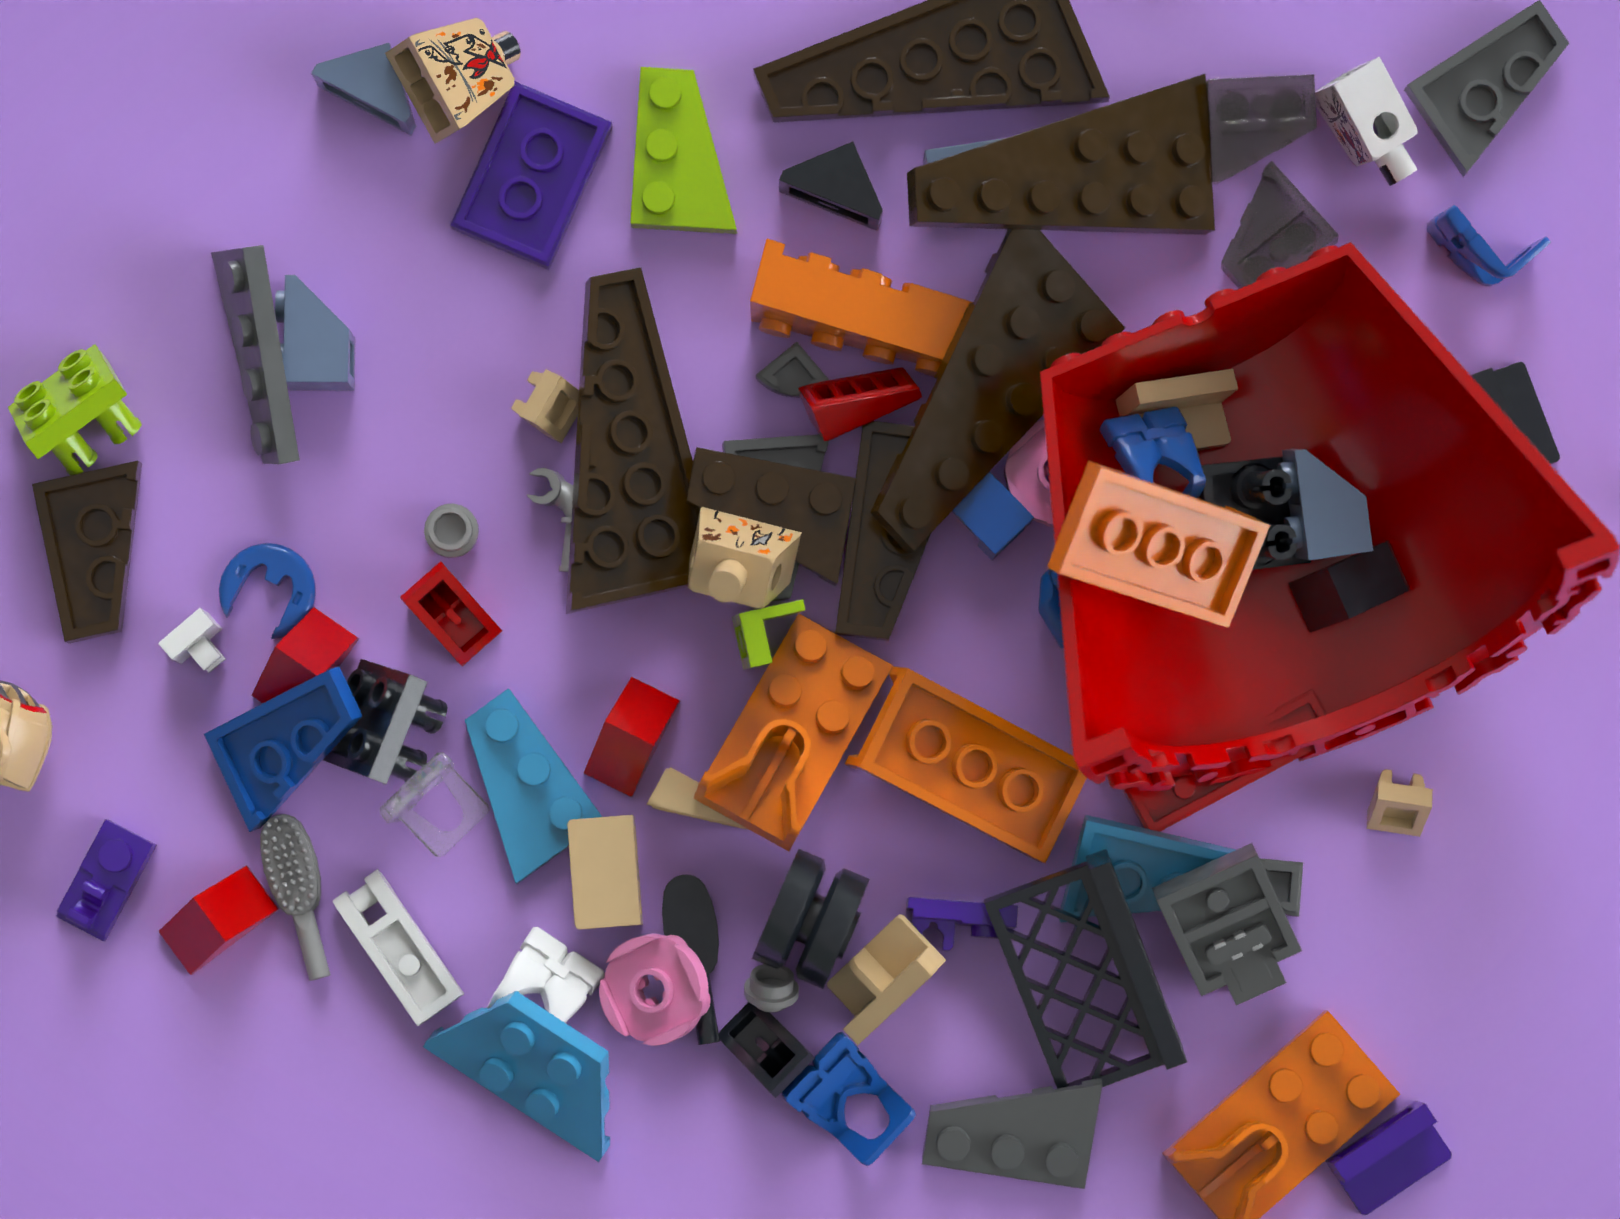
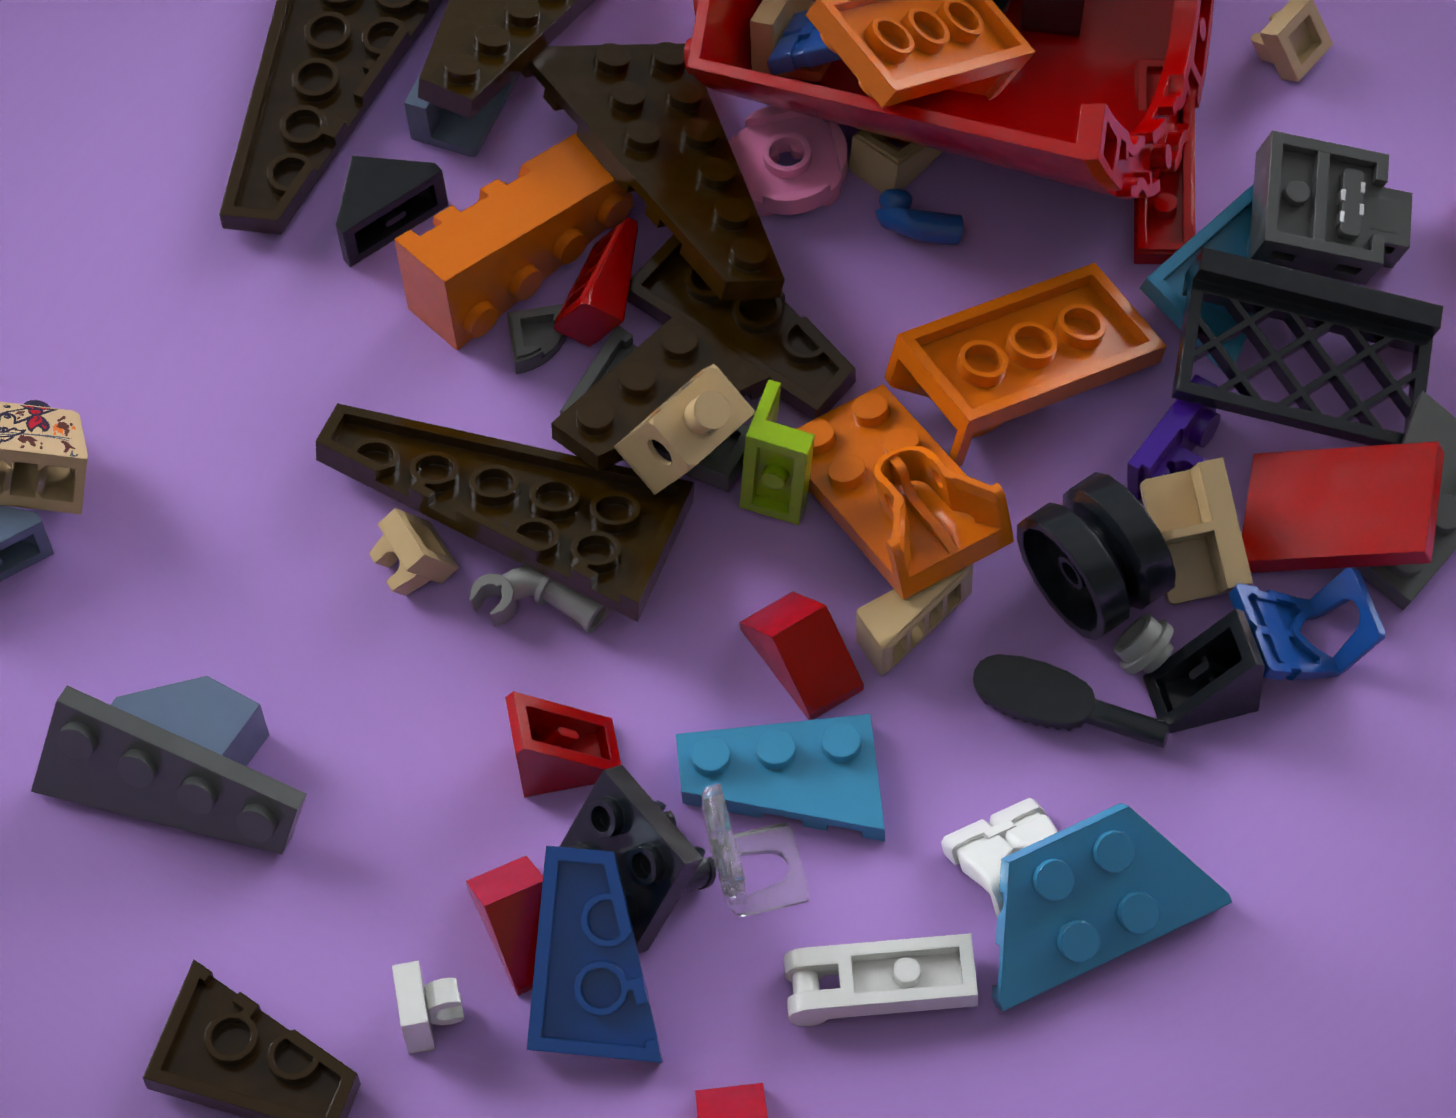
camera: 50 degrees left, 25 degrees down
(55, 409) = (84, 987): lime plate -> none
(280, 563) = (398, 893): blue head -> none
(295, 884) = (746, 1053): light grey piece -> none
(451, 530) = (476, 708): light grey plate -> none
(531, 175) = (176, 463): dark purple tile -> none
(605, 872) = (929, 726): tan panel -> none
(675, 158) = (254, 331): lime wing -> none
(683, 980) = (1053, 719): bright pink plate -> none
(966, 1075) = (1343, 507): none -> red tile
(993, 515) = (798, 217): blue panel -> none

